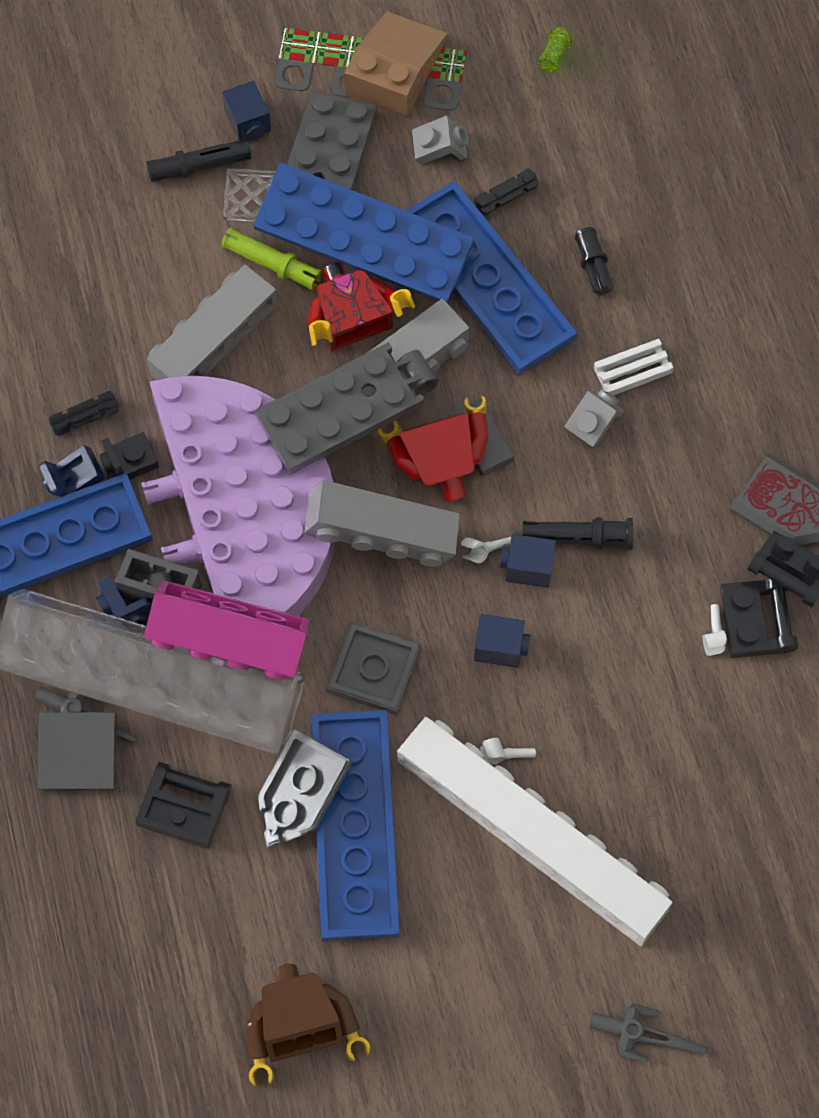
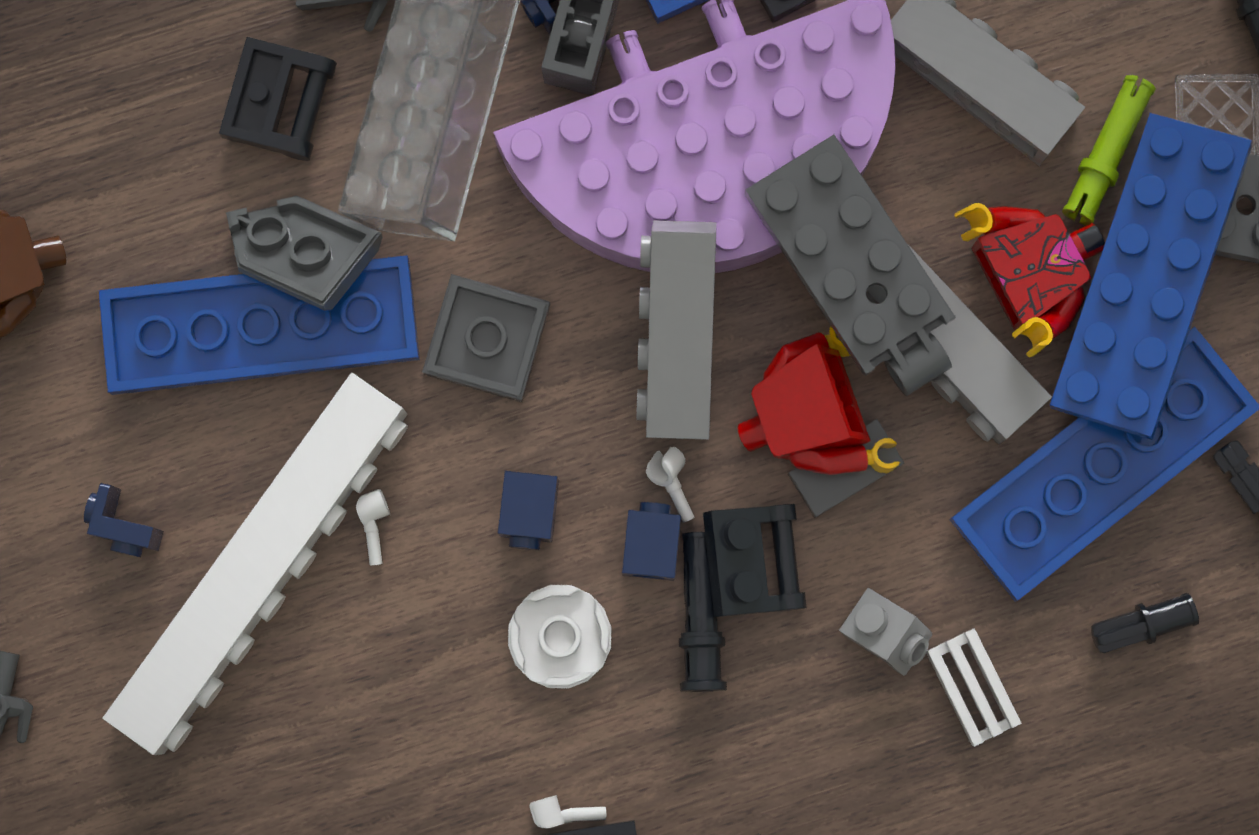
camera: 90 degrees right, 15 degrees up
(226, 629) = (486, 119): dark pink brick -> none
(508, 925) = (125, 536): none -> dark blue bracket
(543, 504) = (739, 563): none -> black plate
(591, 629) = (559, 636): none -> white tile

